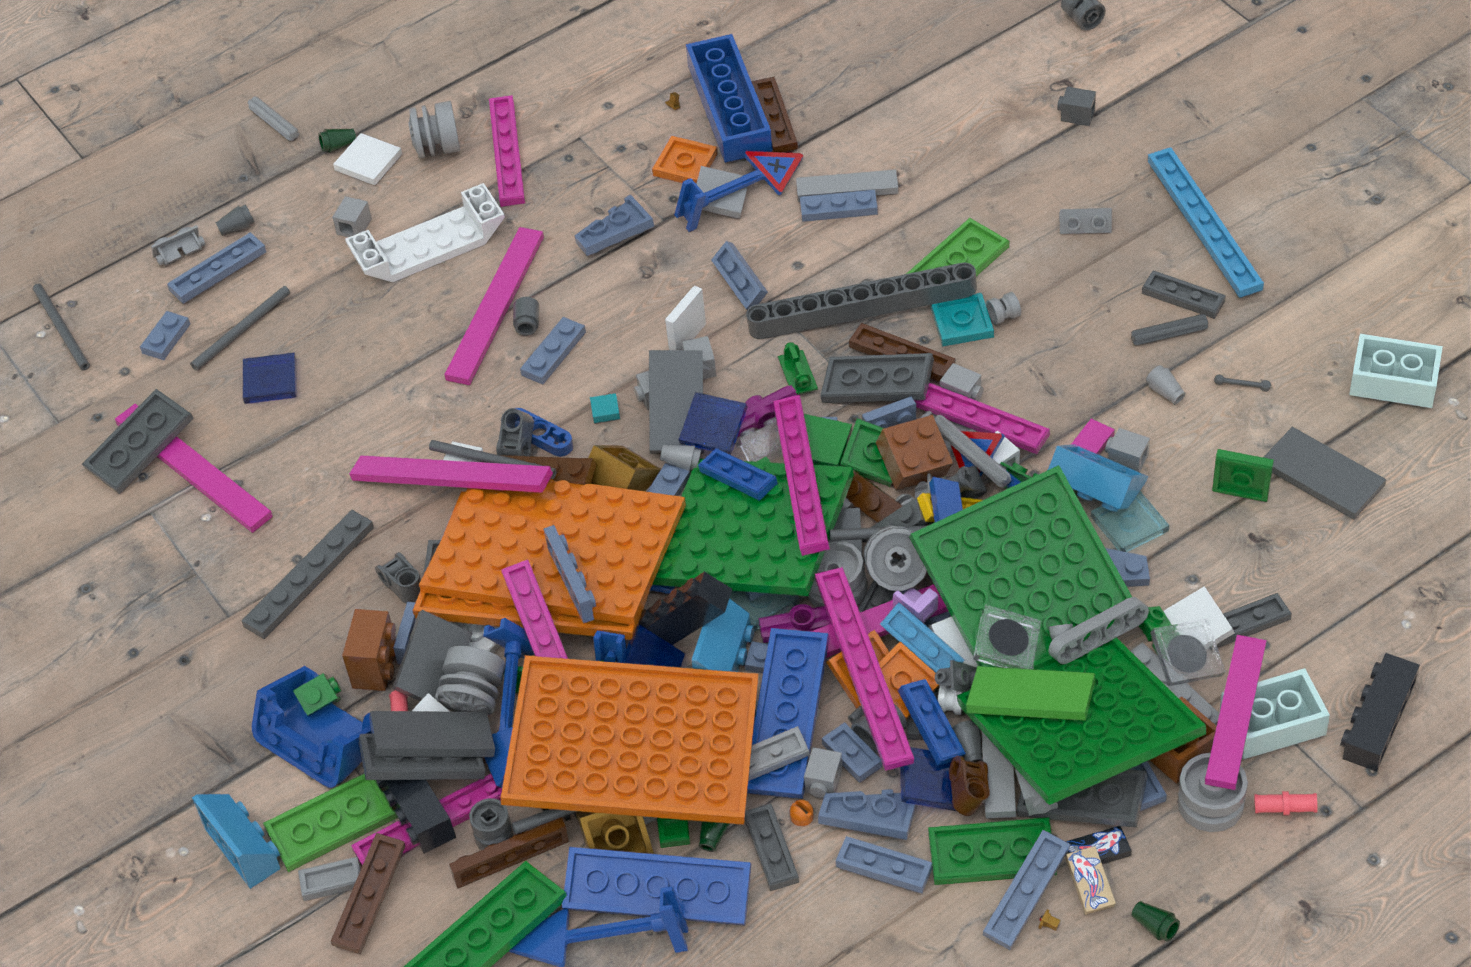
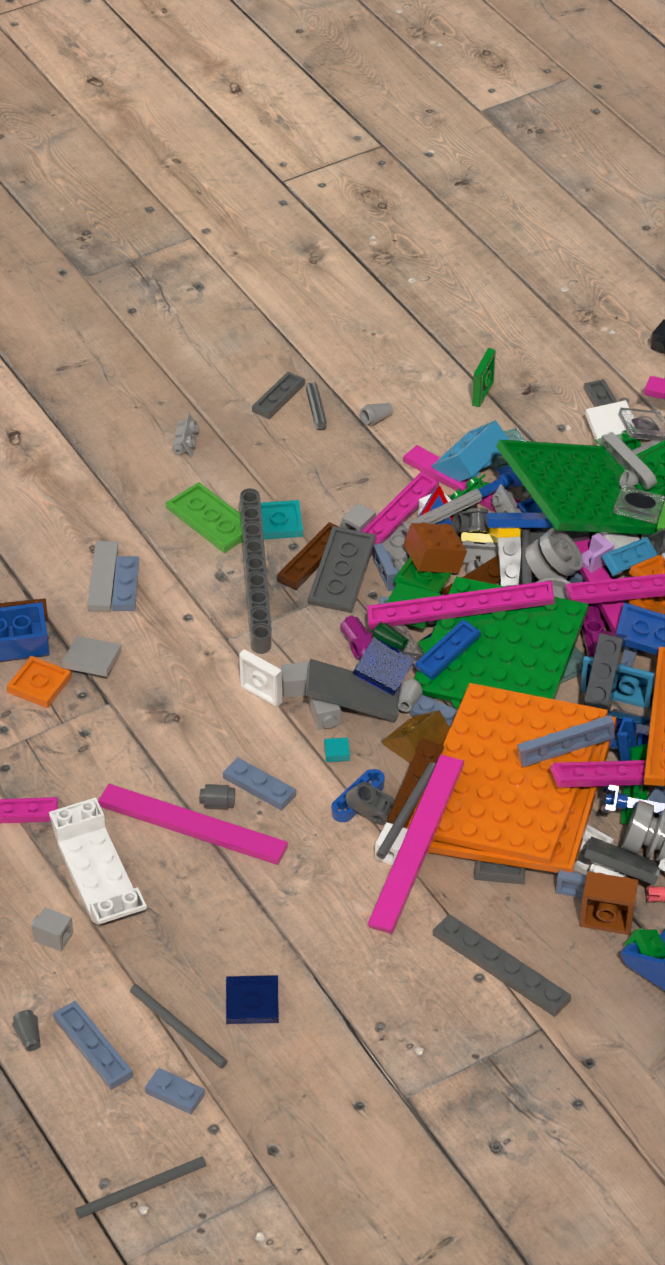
camera: 90 degrees left, 5 degrees down
(137, 441) = (324, 1100): dark grey tile -> none
(187, 239) = (45, 1073): light grey hinge -> none
(210, 481) = (356, 1061): dark pink tile -> none
(400, 578) = (519, 890): dark grey piece -> none
(617, 226) = (115, 731): sand blue wing -> none
(739, 275) = (202, 648): sand blue plate -> none
(753, 417) = (390, 636): none -> dark green cone
(772, 167) = (115, 657): blue piece -> none
(797, 369) = (312, 621): green hinge -> none
(1003, 308) = (277, 489): light grey wheel -> none
(1077, 106) = (53, 424): dark grey brick -> none
(1128, 449) = (441, 437): light grey brick -> none
(1205, 222) = (205, 371): dark azure plate -> none
(1264, 385) = (380, 366): dark grey hinge -> none
(1324, 473) = (466, 350): dark grey tile -> none
(1396, 370) = (390, 293): light aqua brick -> none

